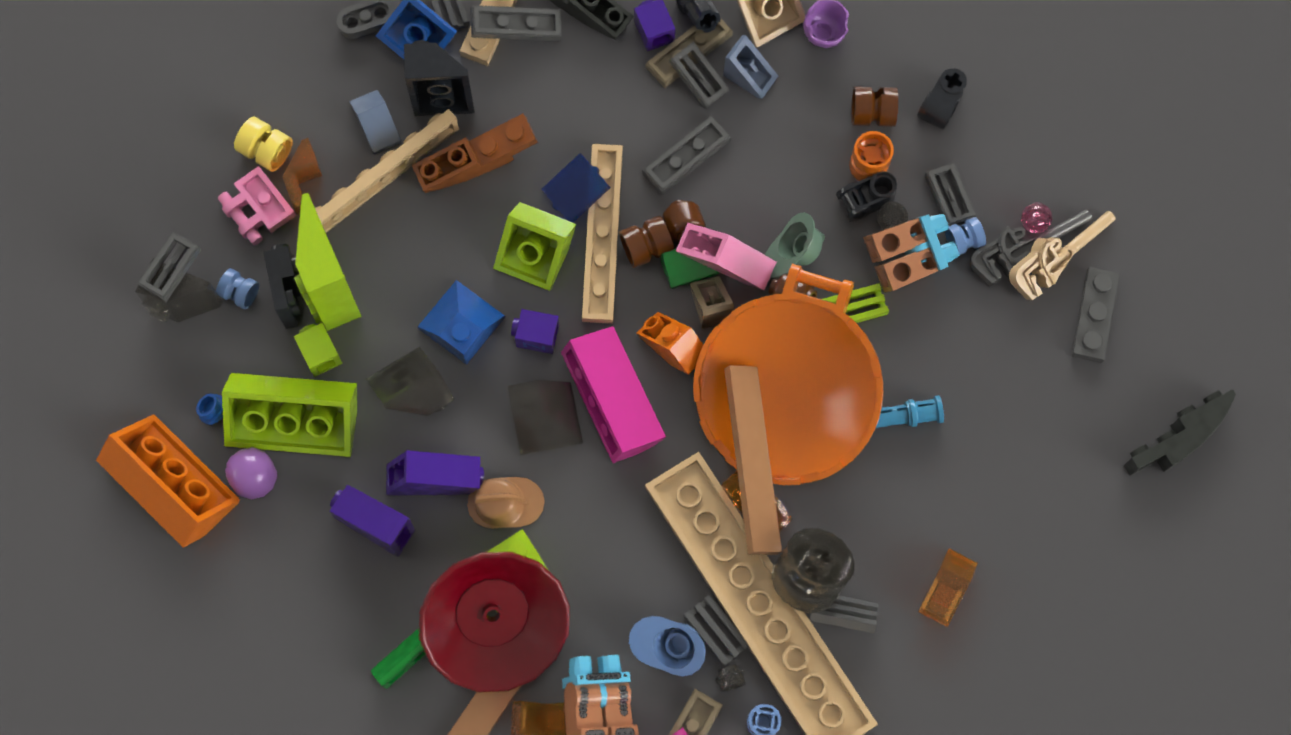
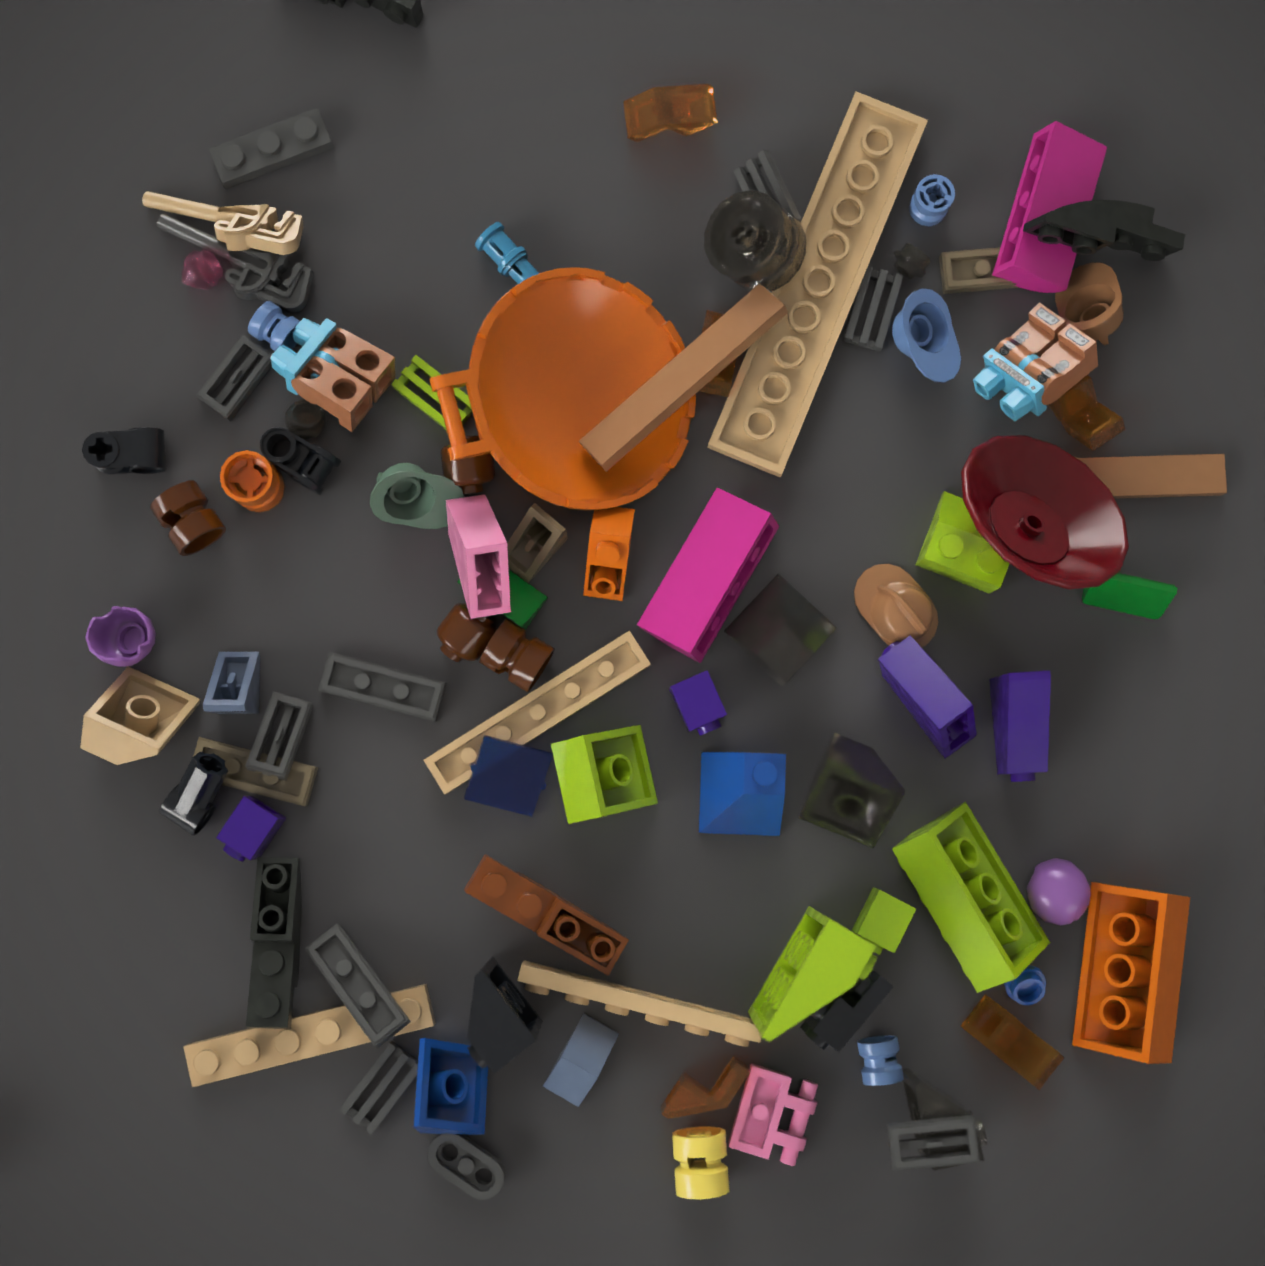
camera: 125 degrees left, 10 degrees up
(190, 376) = (1012, 1042): none -> clear orange slope

